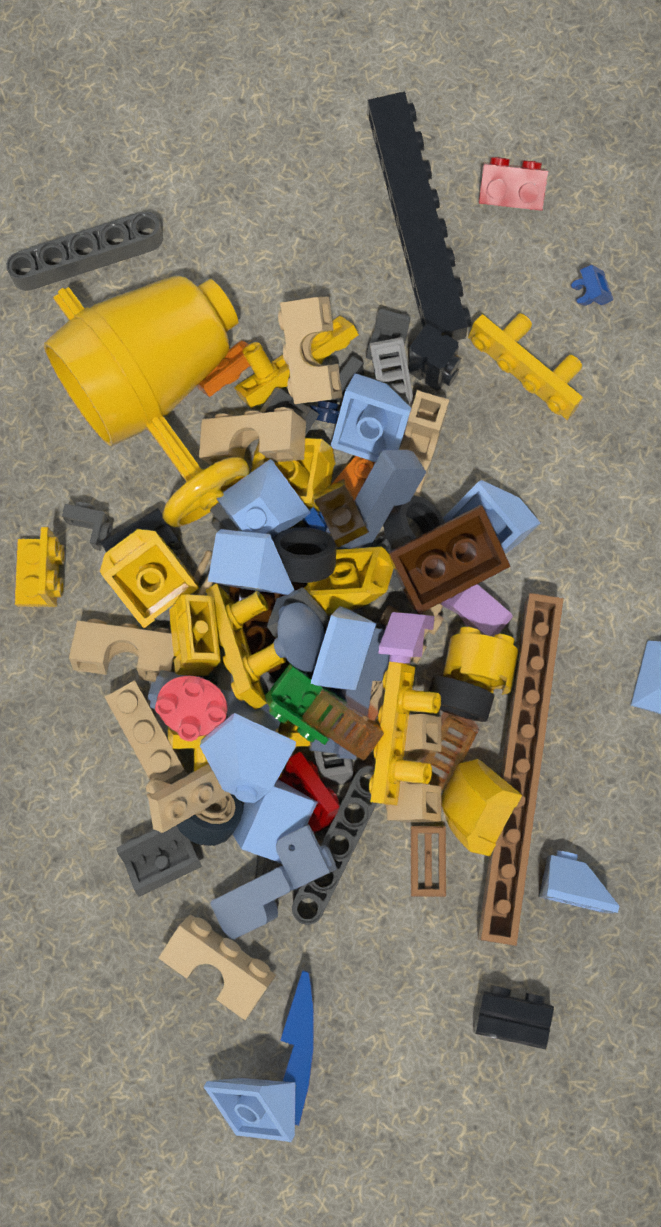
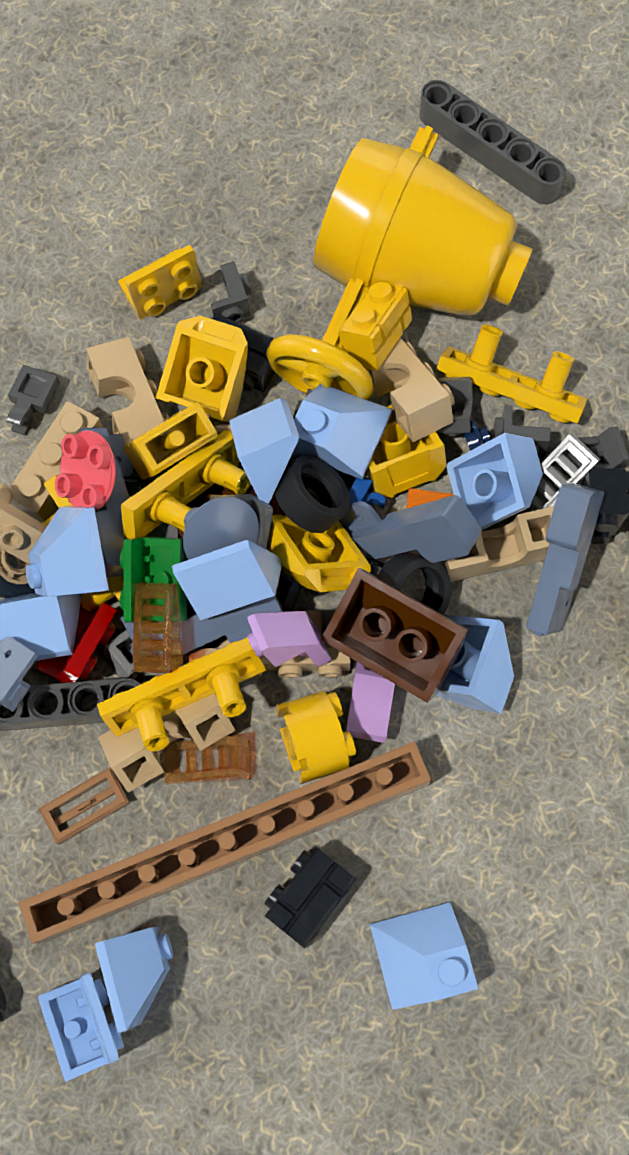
camera: 60 degrees right, 5 degrees down
(70, 724) = (30, 392): none -> dark grey plate
(196, 429) = (376, 324): none -> yellow brick
(227, 370) = (457, 327): orange plate -> none
(301, 323) = (542, 355): tan arch -> none
(340, 513) = (375, 502): dark brown slope -> none
(461, 405) = (569, 541): none -> sand blue piece
(462, 698) = (263, 738): black tyre -> none
(478, 805) = (158, 819): yellow slope -> none
(590, 733) = (309, 896): none -> black brick
(590, 943) = (80, 1027): none -> light blue bracket

